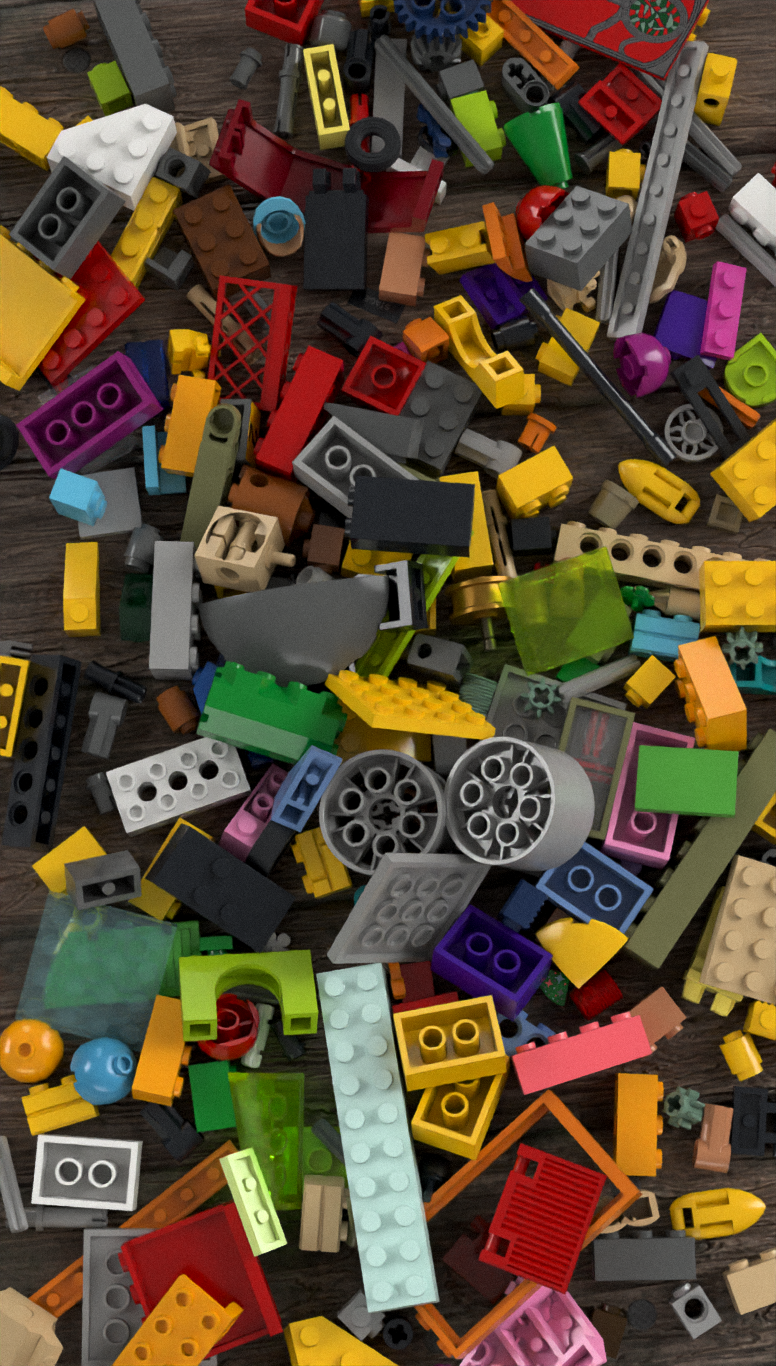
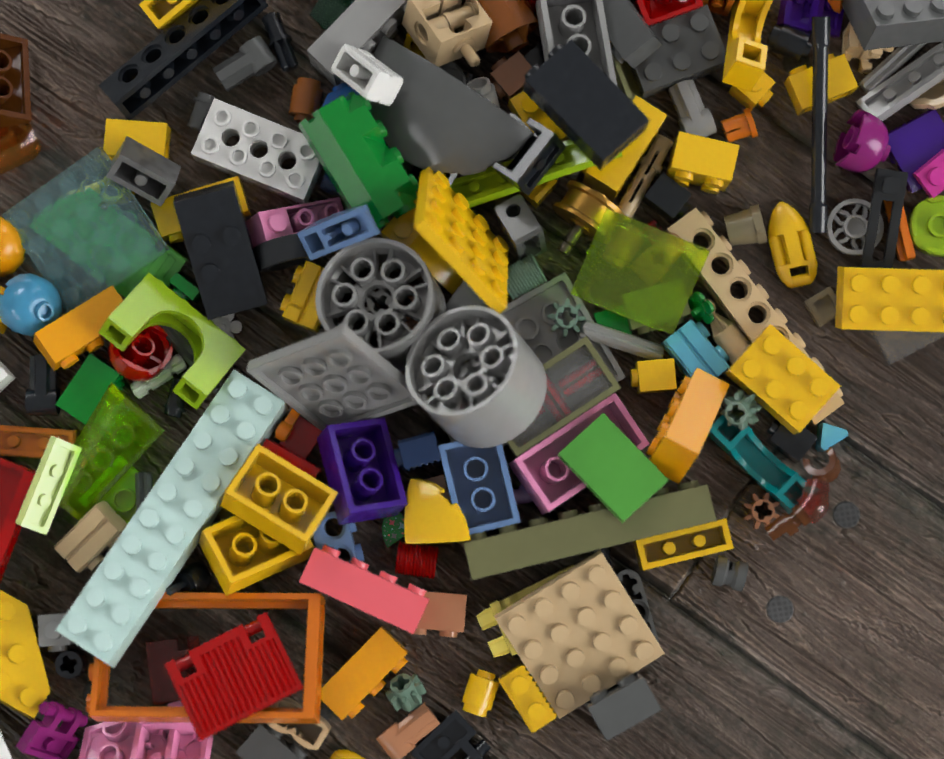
camera: 40 degrees right, 5 degrees up
(216, 645) = (367, 75): none -> white brick

